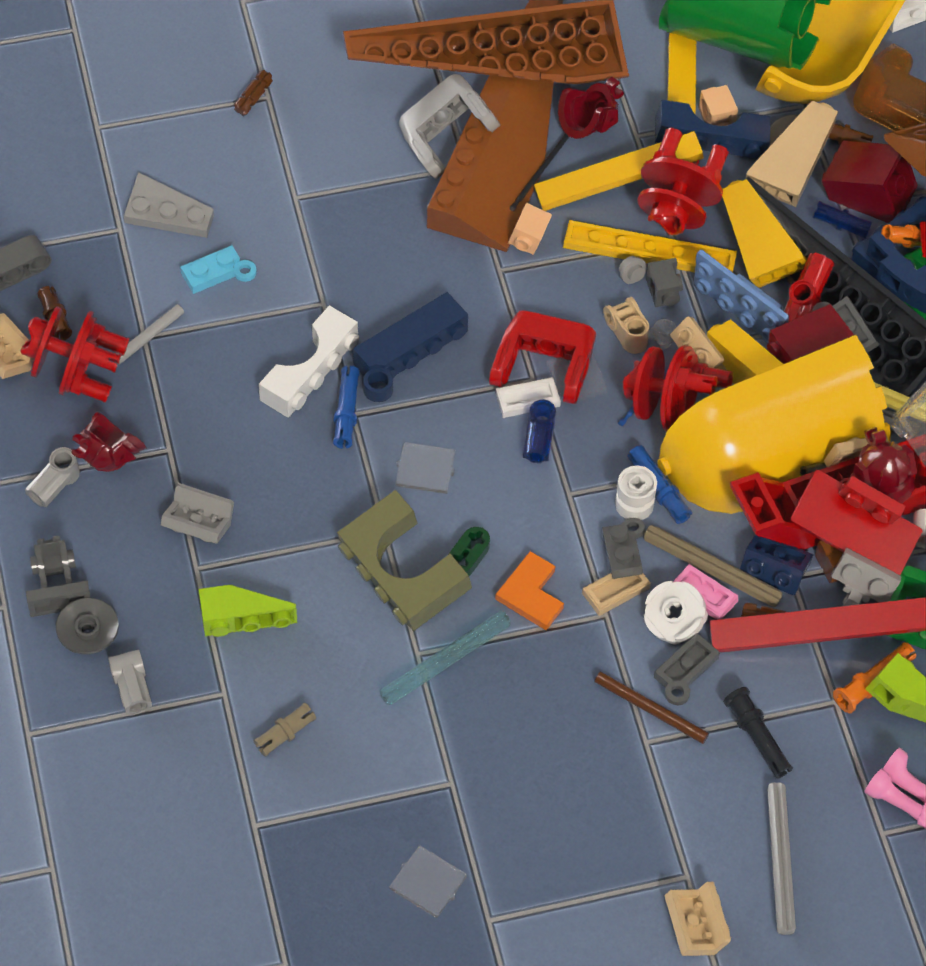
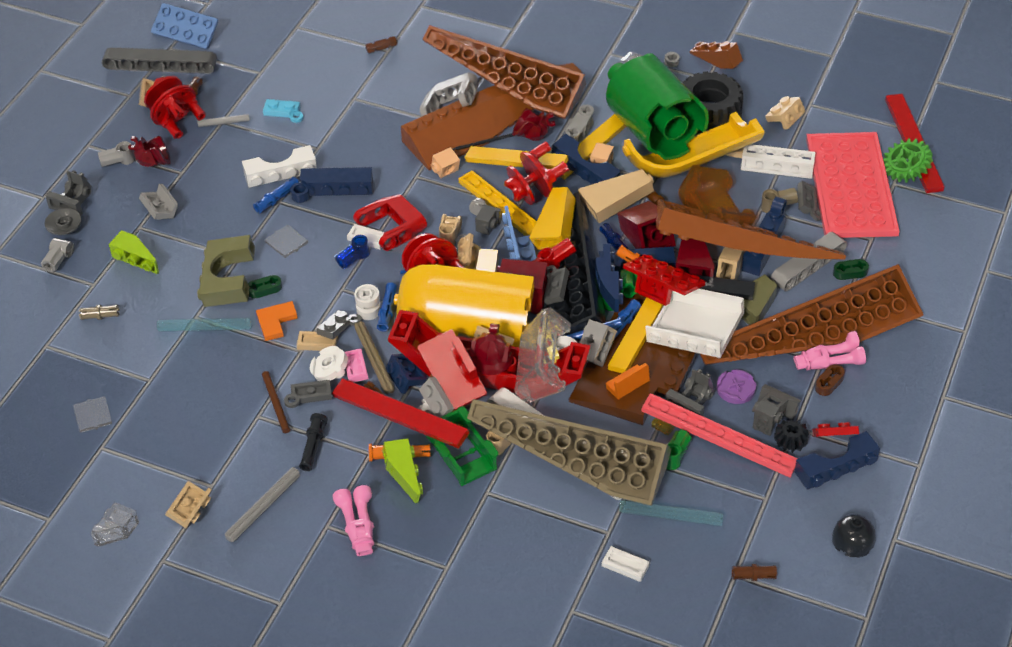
camera: 40 degrees right, 10 degrees down
(166, 209) = (288, 73): light grey wing -> none
(646, 77) = (581, 123): none -> light grey piece

